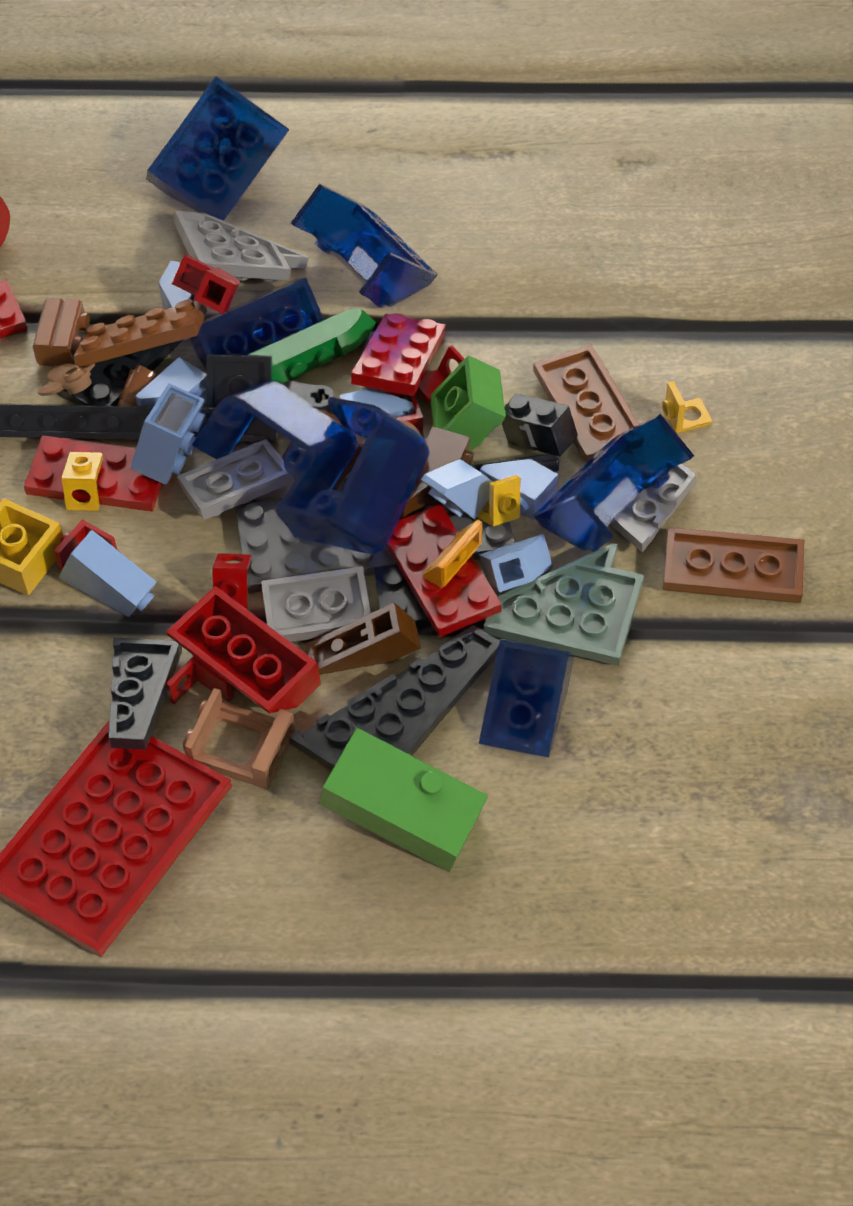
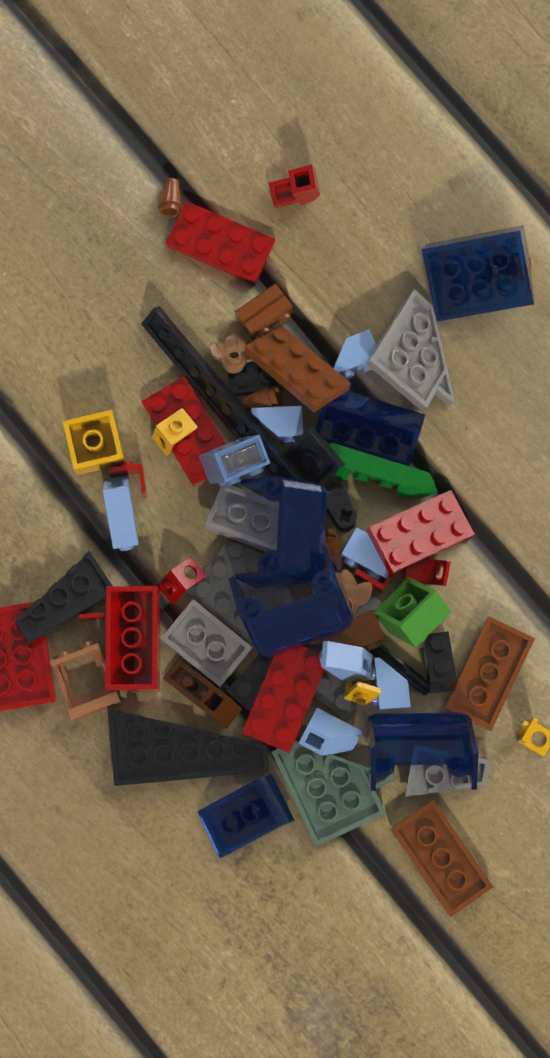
camera: 45 degrees right, 25 degrees up
(209, 284) = (362, 383): red brick -> none
(366, 244) = (495, 438): clear blue windscreen -> none
(402, 799) = (116, 810): bright green brick -> none
(455, 555) = (293, 700): light orange slope -> none

